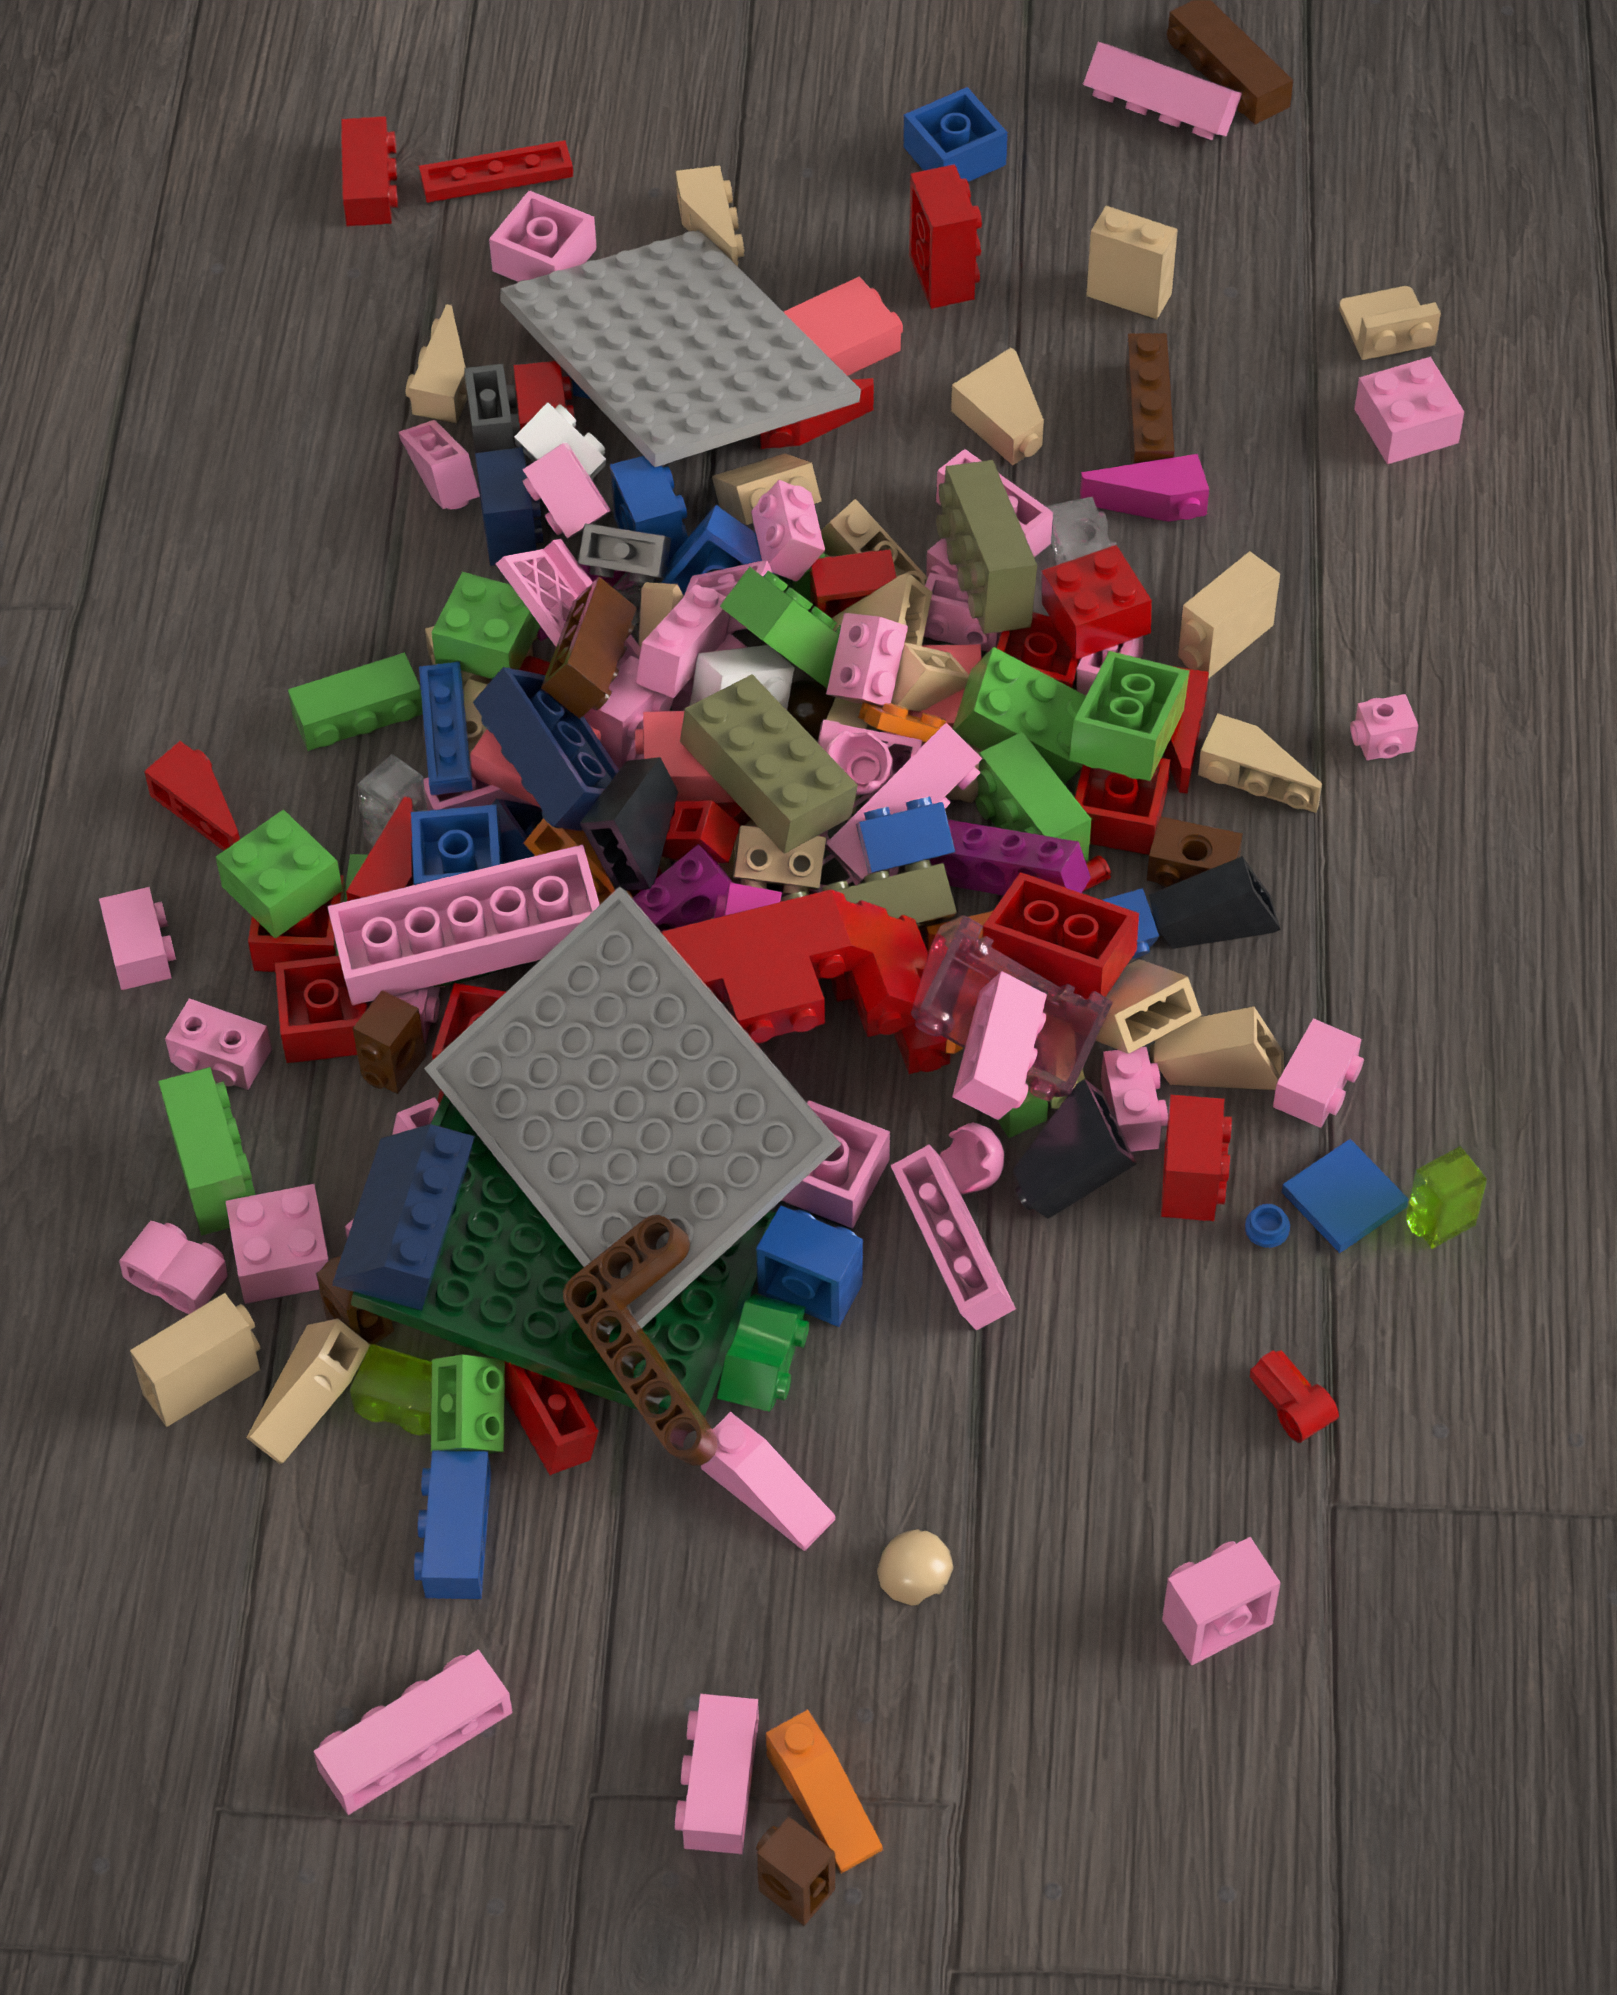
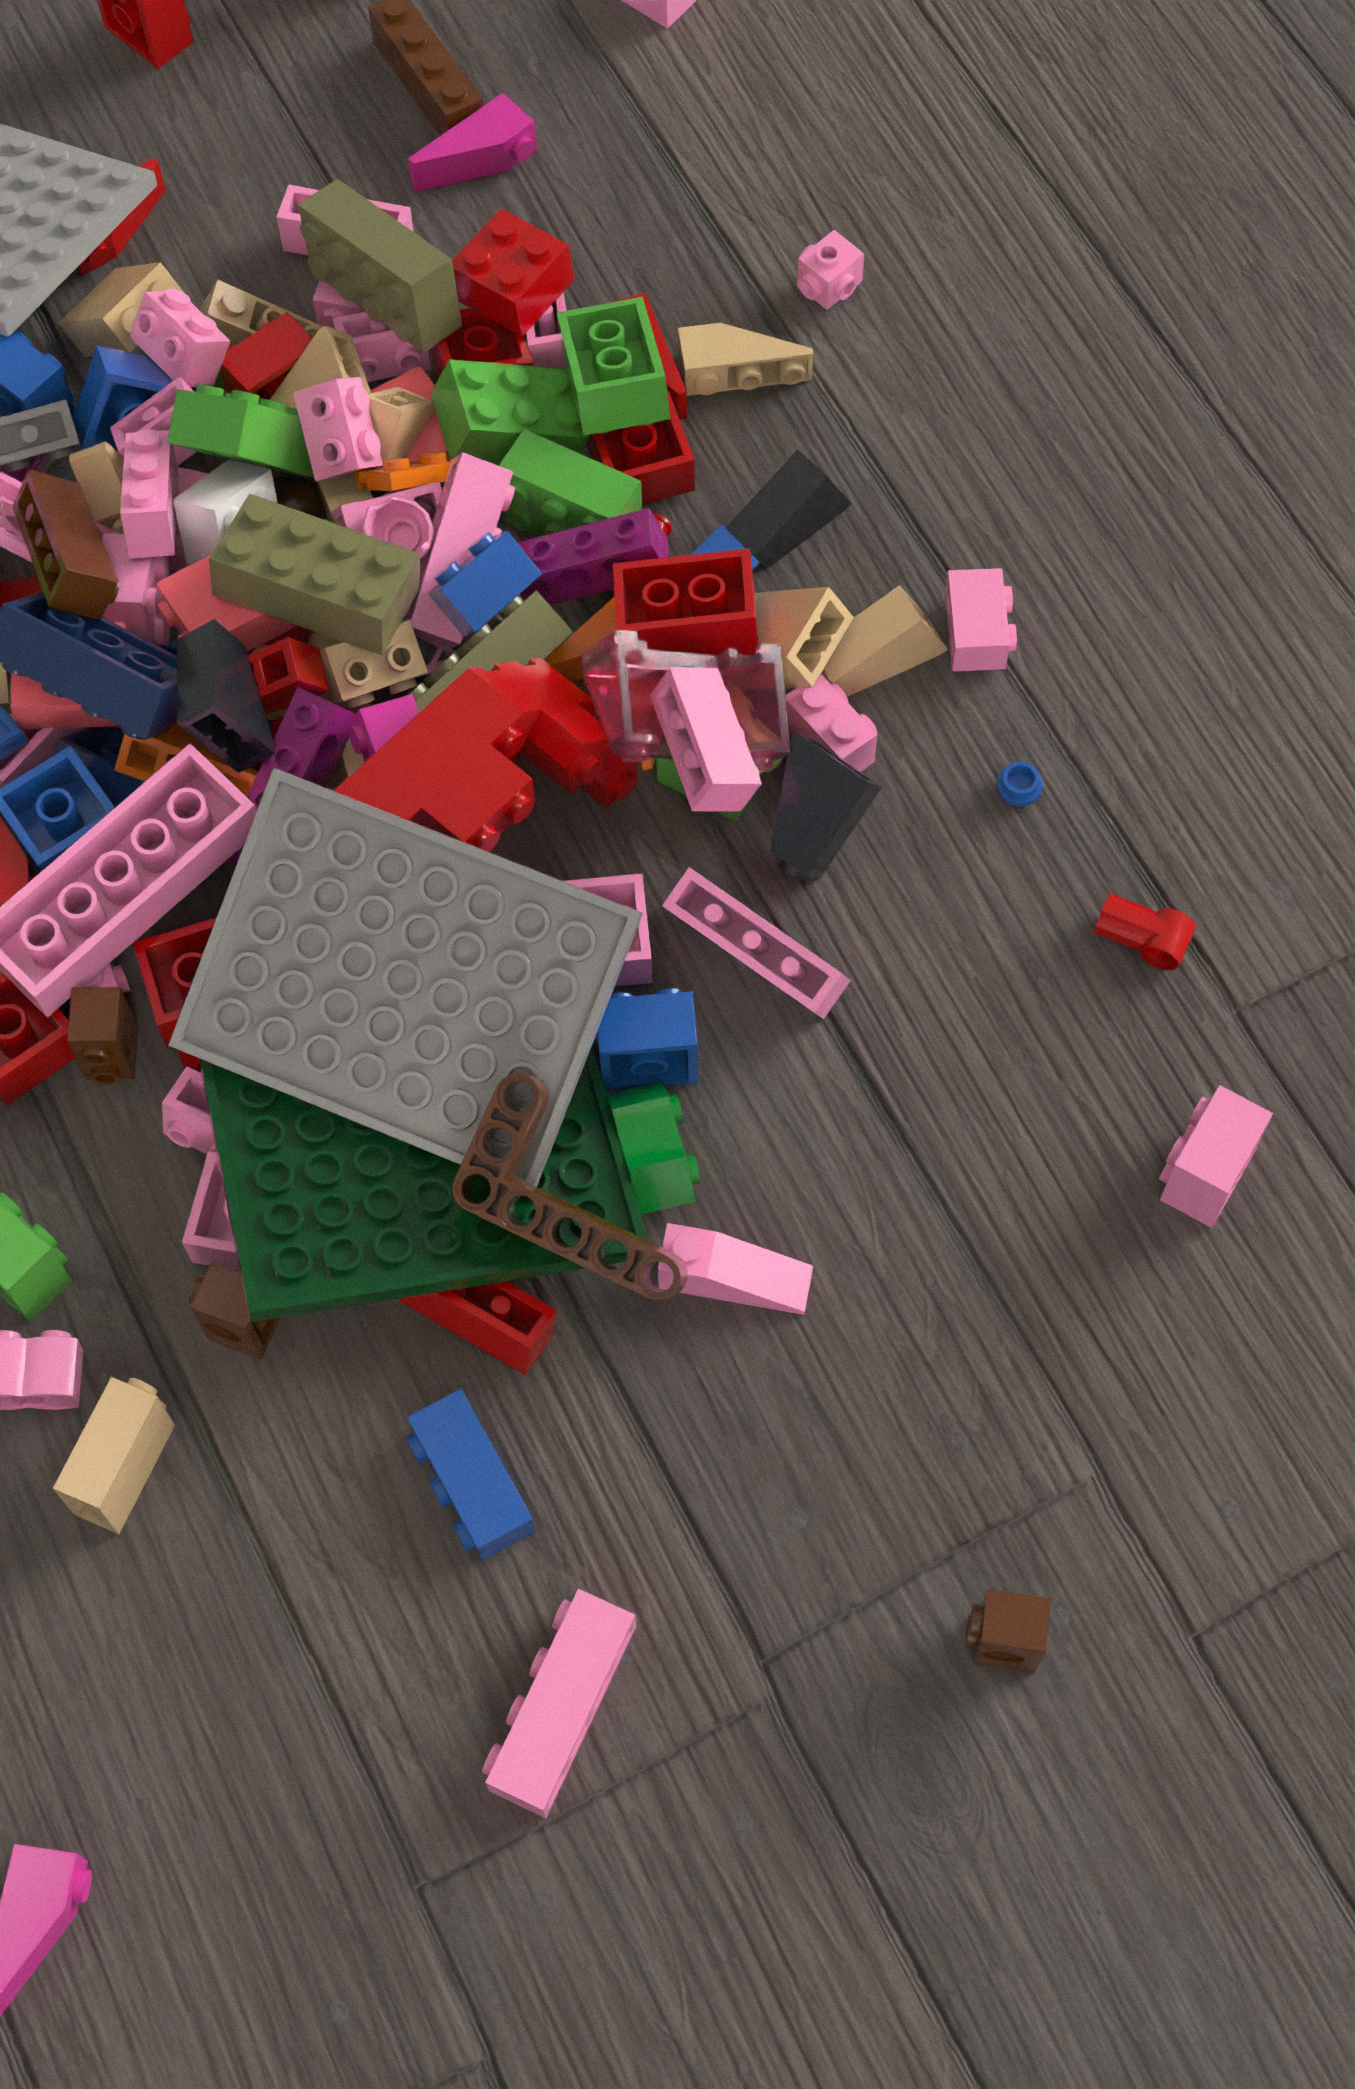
camera: 30 degrees left, 10 degrees up
(277, 1242) = (119, 1291): bright pink brick -> none
(307, 1386) = (241, 1416): tan slope -> none
(394, 1390) = (335, 1371): clear neon green brick -> none
(404, 1215) = (251, 1204): dark blue slope -> none
(468, 1404) = (413, 1354): bright green brick -> none
(718, 1773) = (872, 1576): bright pink brick -> none
(822, 1790) = (975, 1536): orange slope -> none
(850, 325) = (96, 115): coral brick -> none
(914, 1567) = (916, 1275): tan hair -> none
(974, 1157) = (725, 856): bright pink hair -> none
(1000, 407) = (289, 132): tan slope -> none
(1078, 530) = (443, 217): clear brick -> none
(1181, 842) = (717, 464): reddish brown brick -> none
(1195, 1158) = (925, 754): red brick -> none
(1228, 614) = (628, 230): tan brick -> none
(1344, 1195) = (1066, 721): blue tile -> none
(1445, 1197) = (1165, 676): clear neon green brick -> none

